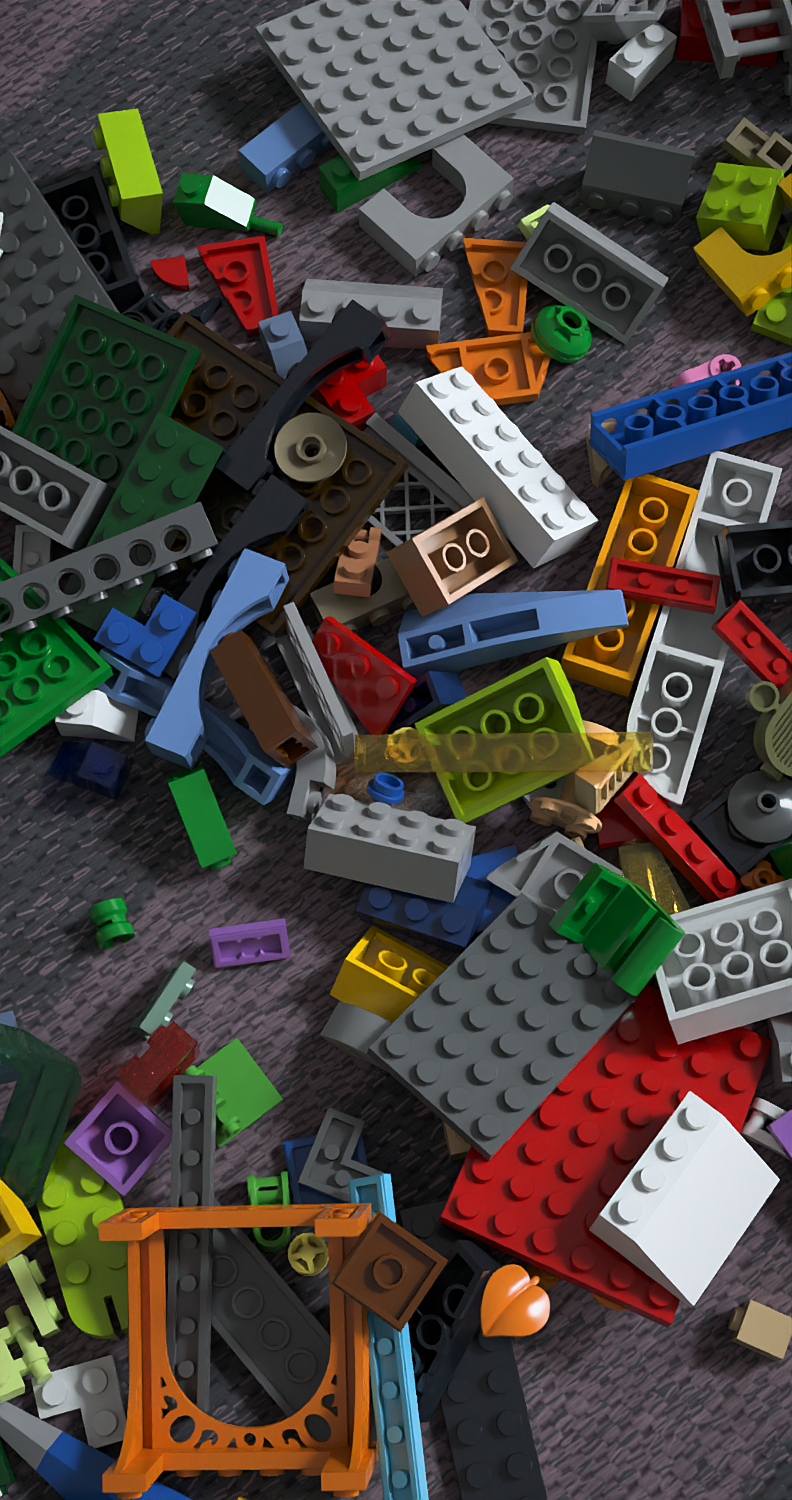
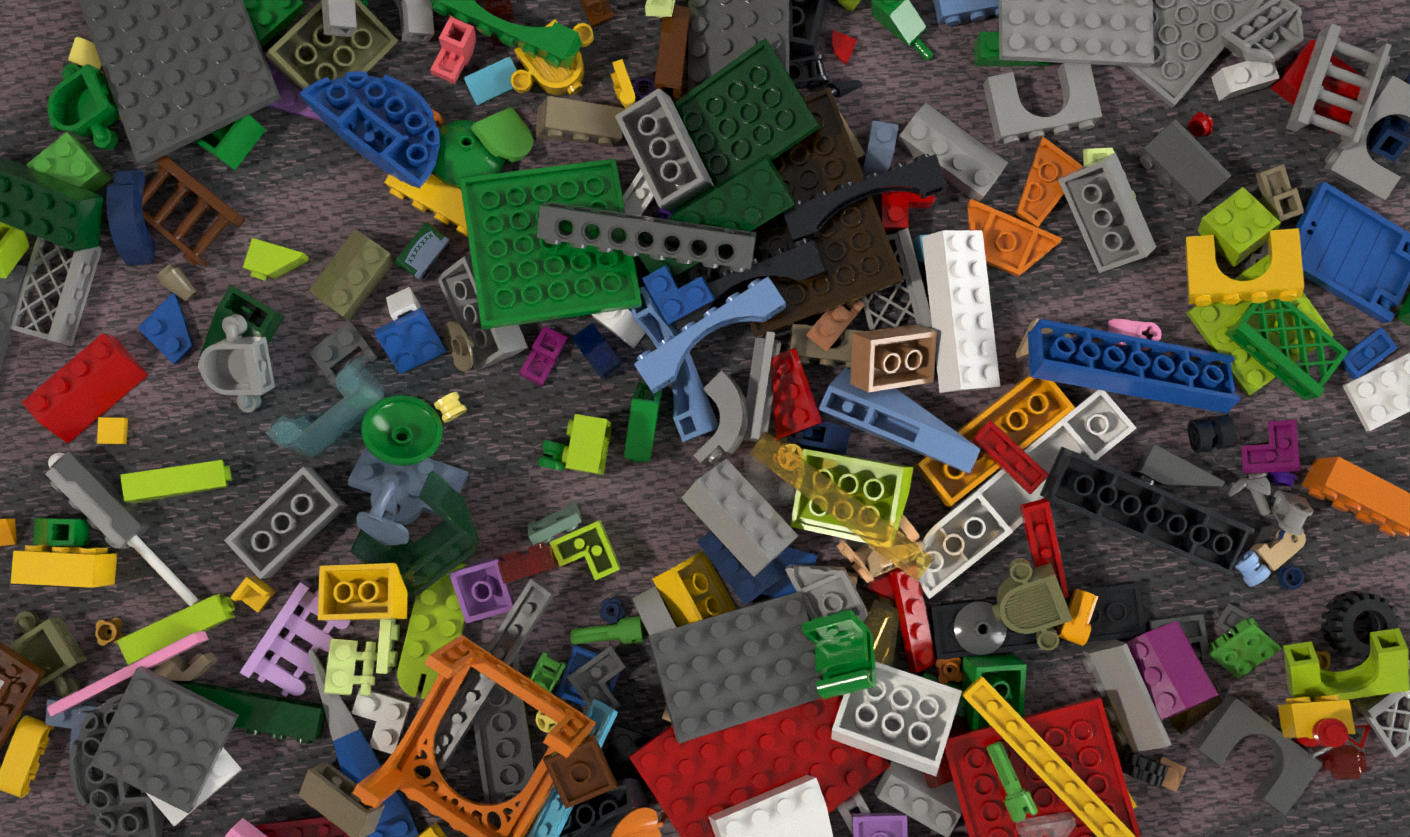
camera: 30 degrees right, 15 degrees up
(25, 815) = (543, 356): none -> magenta slope
(145, 872) = (587, 444): none -> lime brick
(226, 997) = (588, 542): none -> lime brick
(242, 1090) = (570, 596): bright green hinge -> none
(243, 278) = (884, 80): red wing -> none
(249, 943) = (625, 517): medium lavender plate -> none
(262, 699) = (719, 379): reddish brown slope -> none
(298, 1078) = (619, 610): none -> dark blue plate
(303, 434) = (847, 221): dark tan dish -> none
(339, 1079) = (628, 631): none -> bright green piece
(386, 789) = (760, 477): blue plate -> none
(559, 339) = (1055, 244): green piece -> none
(629, 127) = (1203, 123): none -> red plate

